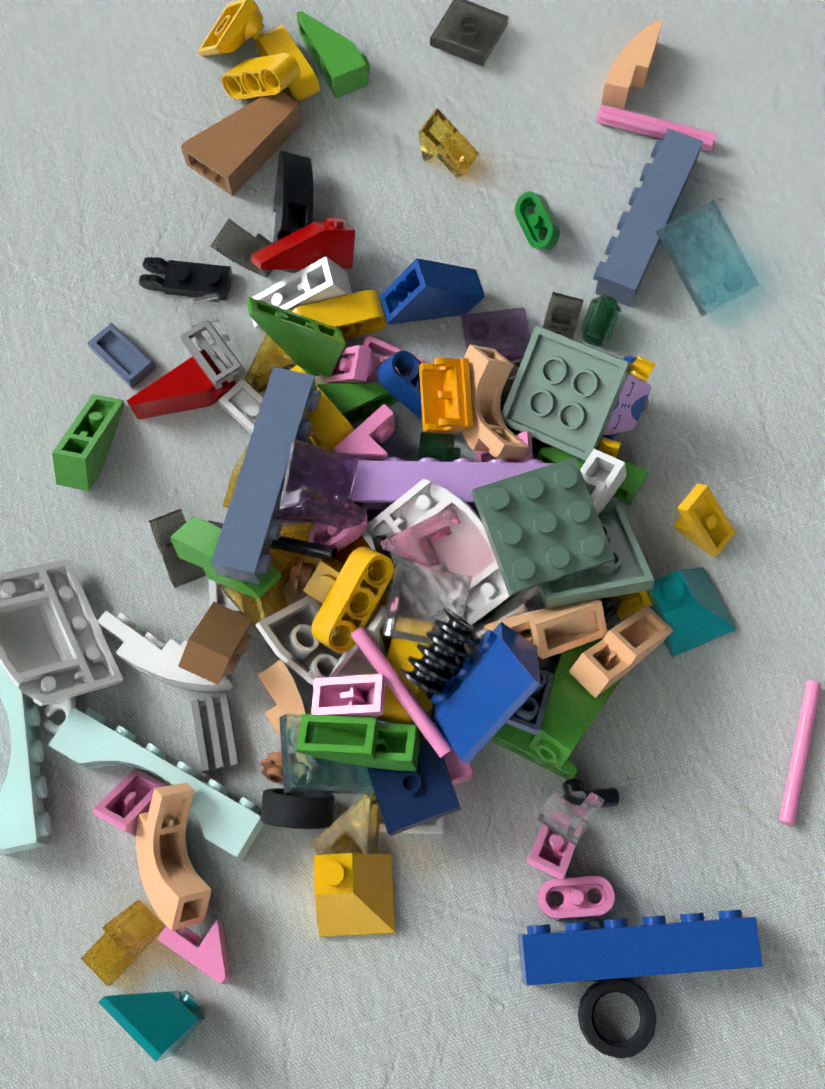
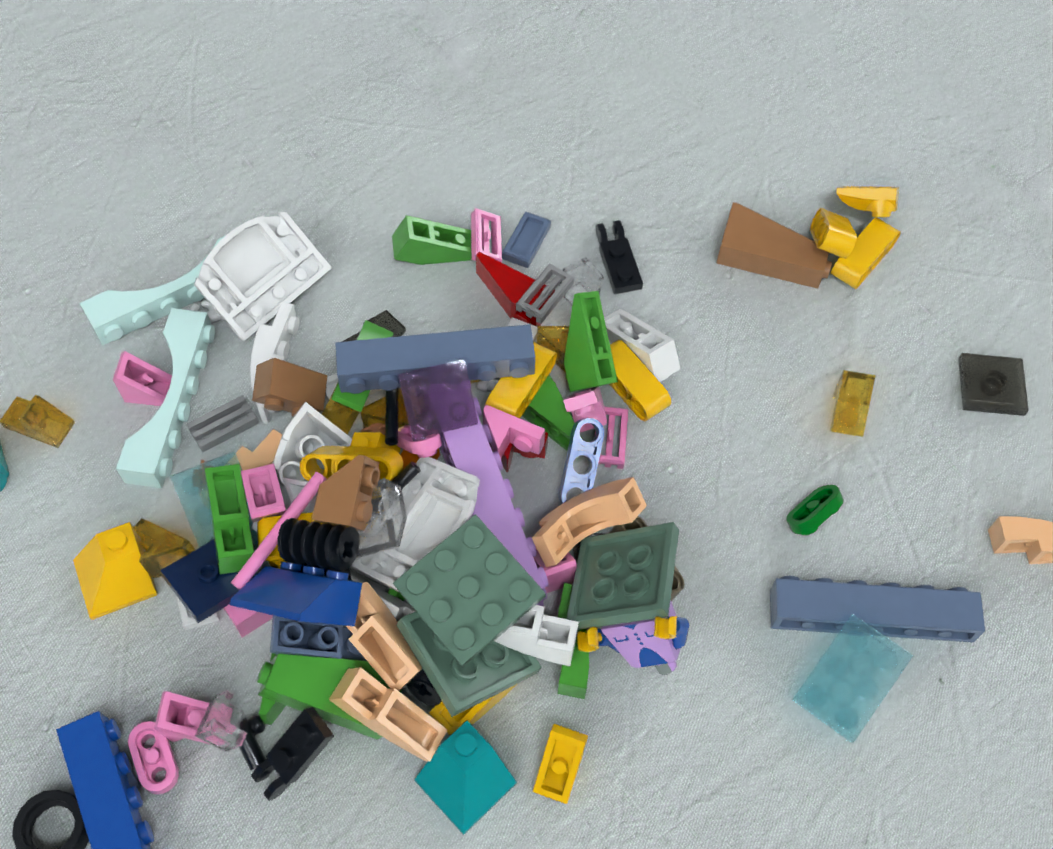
camera: 65 degrees right, 10 degrees down
(101, 391) = (481, 234): none -> bright pink tile
(163, 861) = (102, 422): light nougat arch -> none
(209, 956) = (38, 479): bright pink slope -> none
(239, 245) = (667, 289): clear smoke slope -> none
(293, 196) = (717, 306): black slope -> none
(297, 809) = (162, 499): black tyre -> none
(308, 245) = (692, 335): red slope -> none
(334, 55) = (890, 290): bright green slope -> none
(405, 606) = (348, 494): none -> medium nougat slope
(415, 542) = (416, 496): clear pink slope -> none
(431, 292) = (689, 442): blue slope -> none
(438, 446) = (531, 499): clear green brick -> none
(446, 395) = (577, 477): light orange hinge -> none
(500, 330) = (678, 505): clear purple bracket -> none
(563, 314) = (714, 568): clear smoke slope -> none
(600, 320) = (736, 601): clear green brick -> none
(625, 750) = (294, 752): none -> black hinge
(650, 125) = (985, 583): bright pink axle -> none

